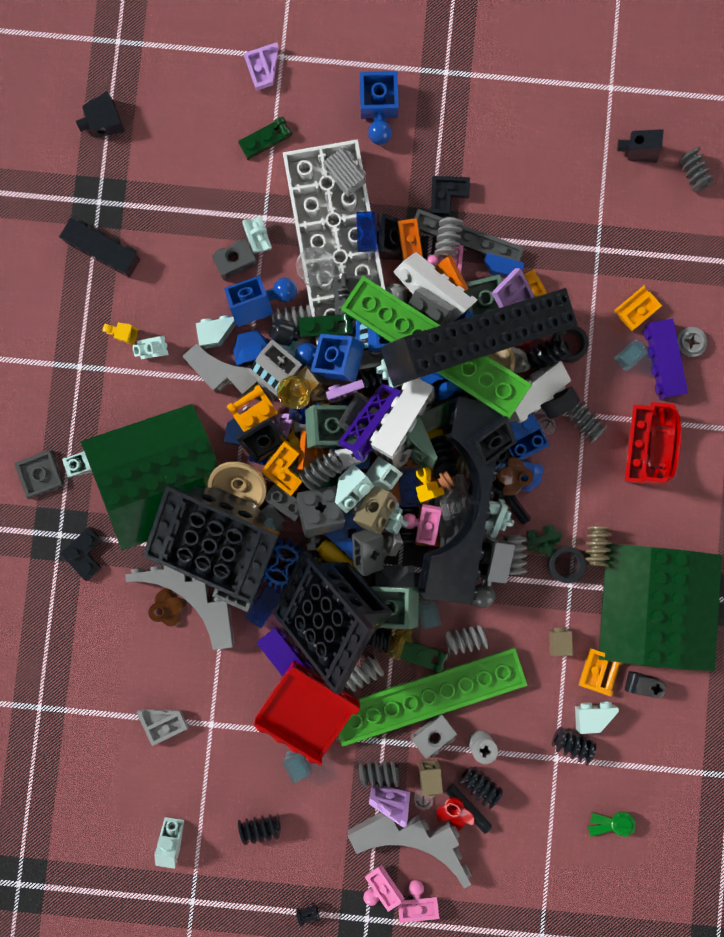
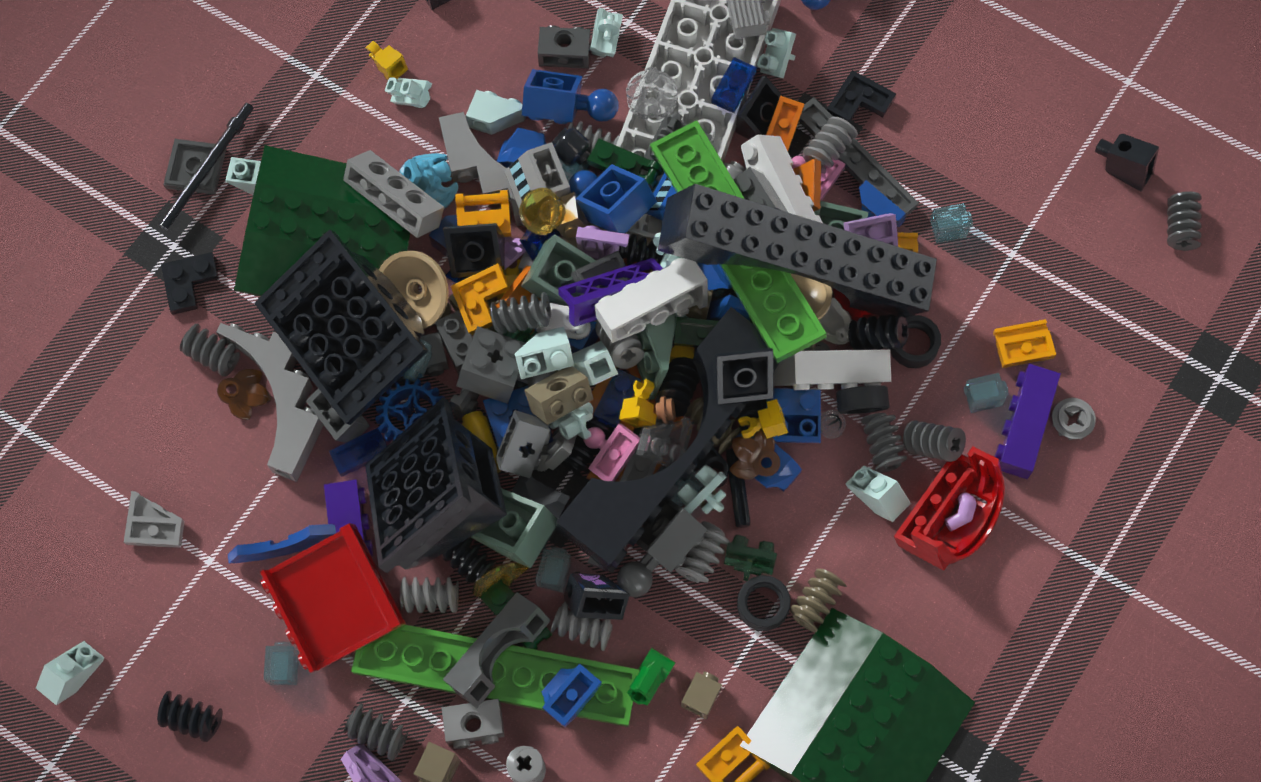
camera: 30 degrees right, 15 degrees down
(48, 433) = (234, 127): none -> black bar
(128, 595) = (209, 351): none -> dark grey piece
(186, 428) = (393, 193): none -> light grey brick
(198, 401) = (427, 173): none -> medium azure animal
(252, 693) = (296, 542): none -> blue tile
(378, 189) = (777, 52): none -> light aqua hips
(420, 712) = (515, 623): none -> dark grey arch
(465, 621) = (587, 594): none -> black torso
(483, 688) = (569, 693): none -> blue slope
(515, 452) = (769, 419): none -> yellow piece
(524, 642) = (652, 673): none -> green piece
(551, 250) = (951, 222): none -> clear light blue brick
(599, 456) = (879, 493): none -> light aqua slope
(617, 406) = (934, 440): none -> dark grey piece
(660, 442) = (965, 512): none -> lavender arm

